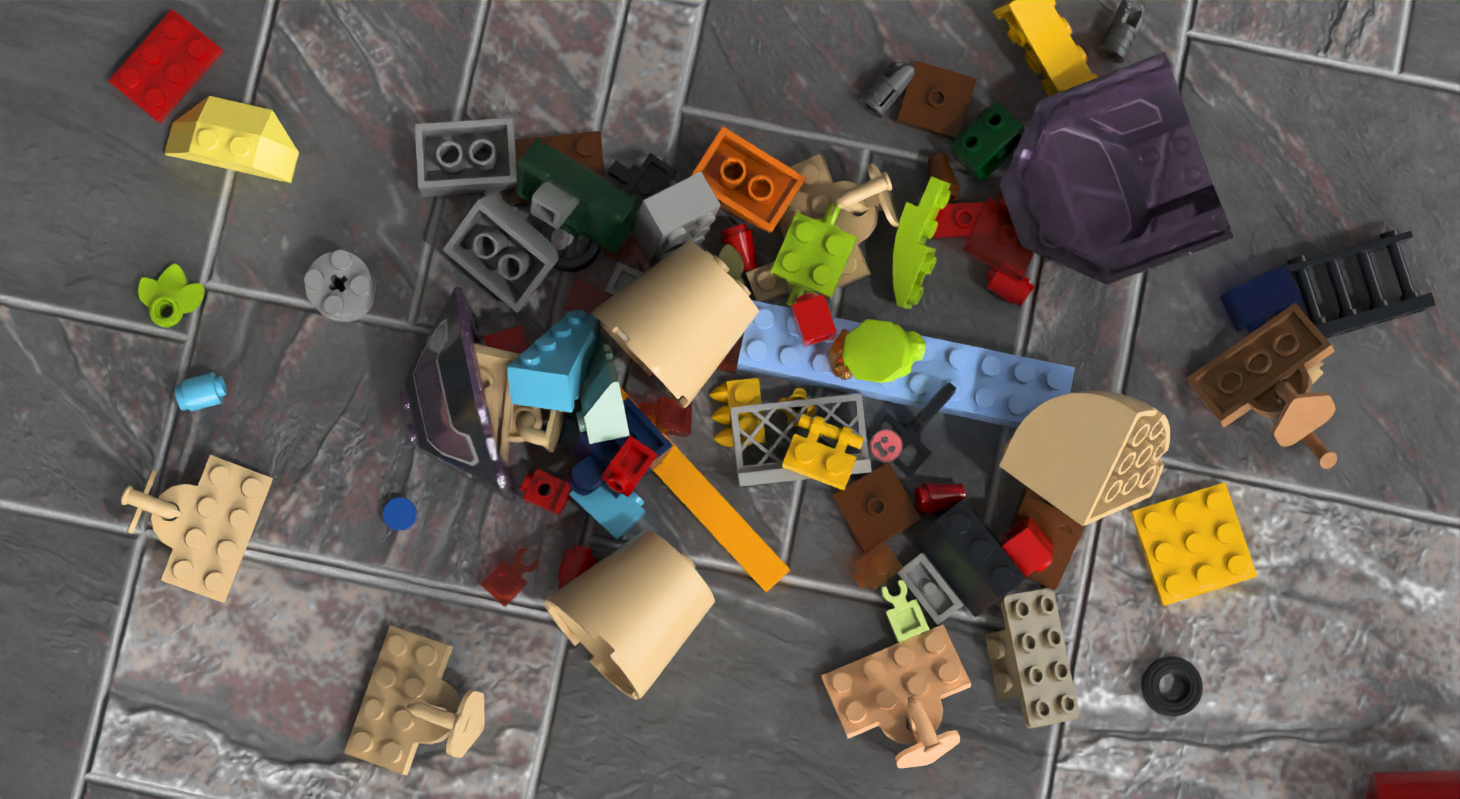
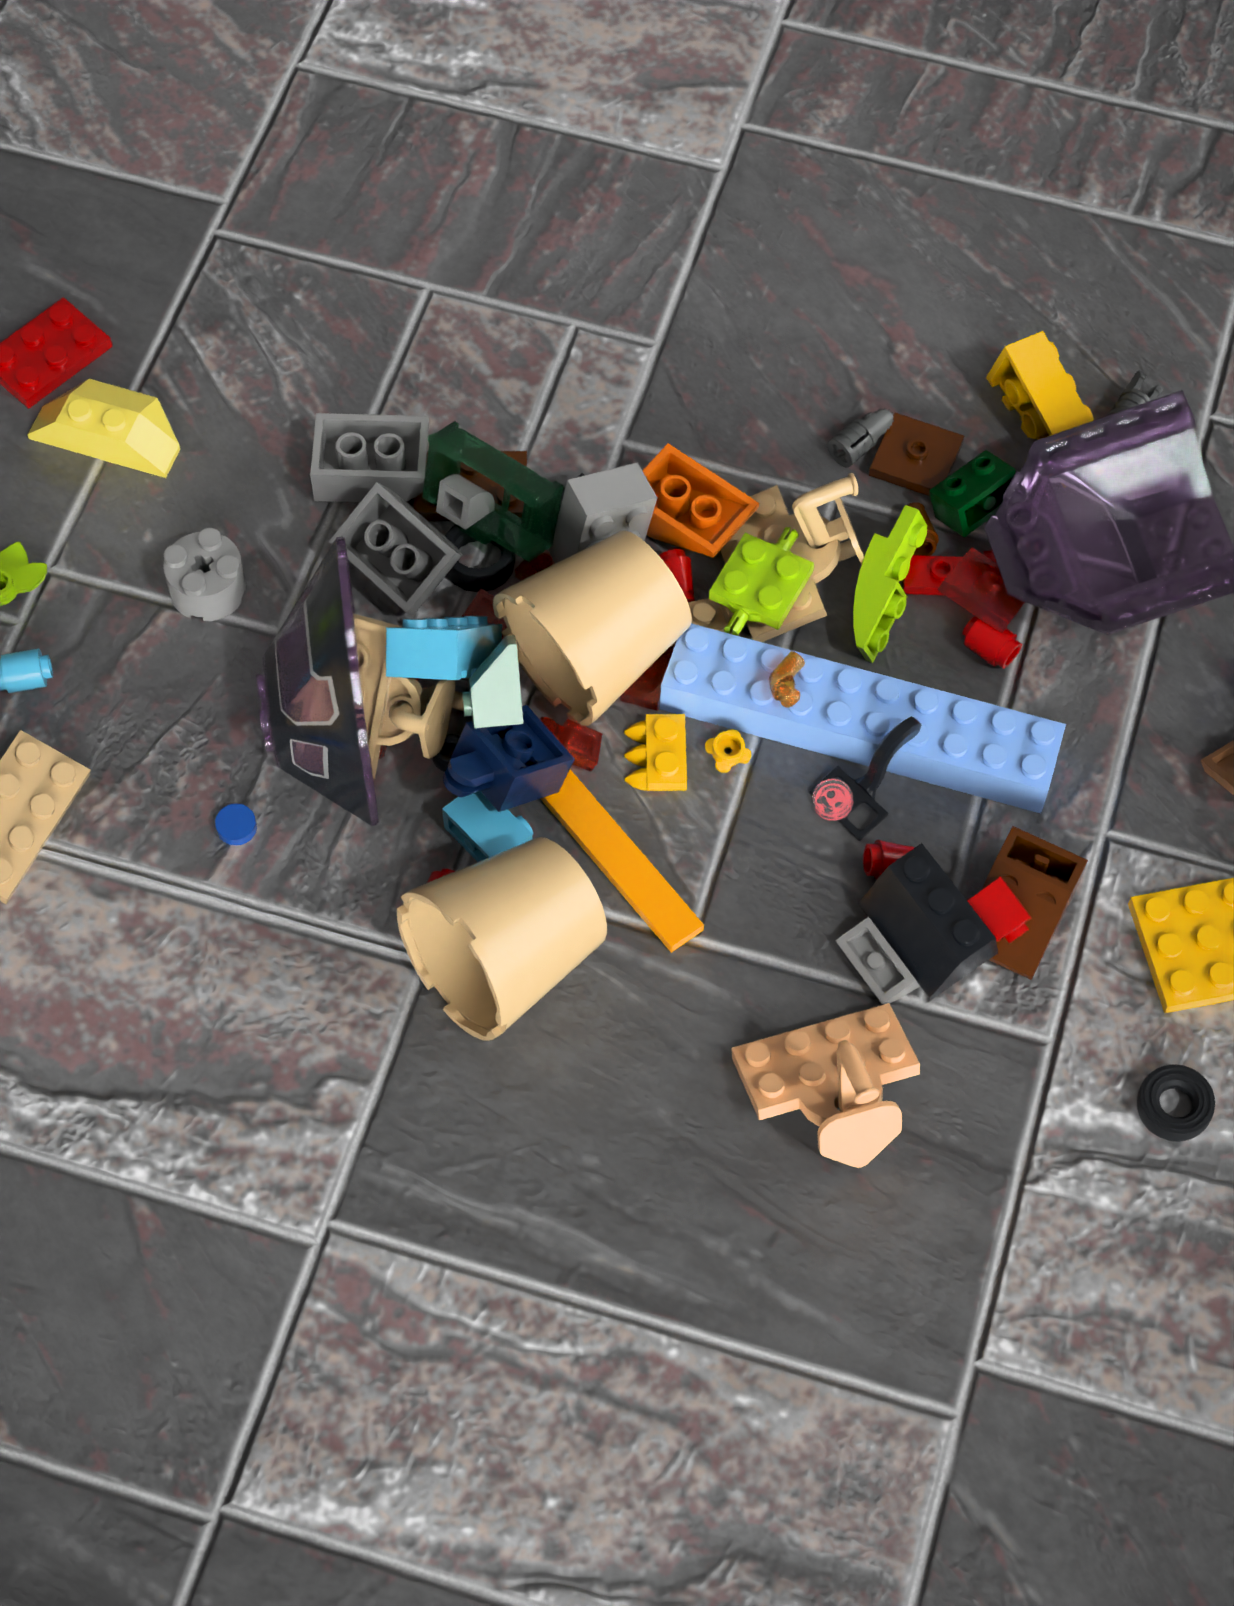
camera: 10 degrees right, 20 degrees down
(407, 704) = (210, 1023): tan plate -> none
(507, 581) = (355, 905): clear red plate -> none
(555, 501) = (420, 822): red brick -> none
(628, 466) = (516, 761): red bracket -> none
(775, 472) = (733, 814): light grey fence -> none
(812, 319) = (755, 637): red brick -> none
(821, 461) = (750, 795): yellow plate -> none
(876, 507) = (815, 868): reddish brown plate -> none
(876, 567) = (809, 932): clear orange bracket -> none
(881, 351) = (834, 673): lime piece -> none
(905, 617) = (840, 989): yellowish green plate -> none
(1033, 659) = (998, 1051): dark tan bracket -> none
(1089, 452) = (1087, 785): tan brick -> none

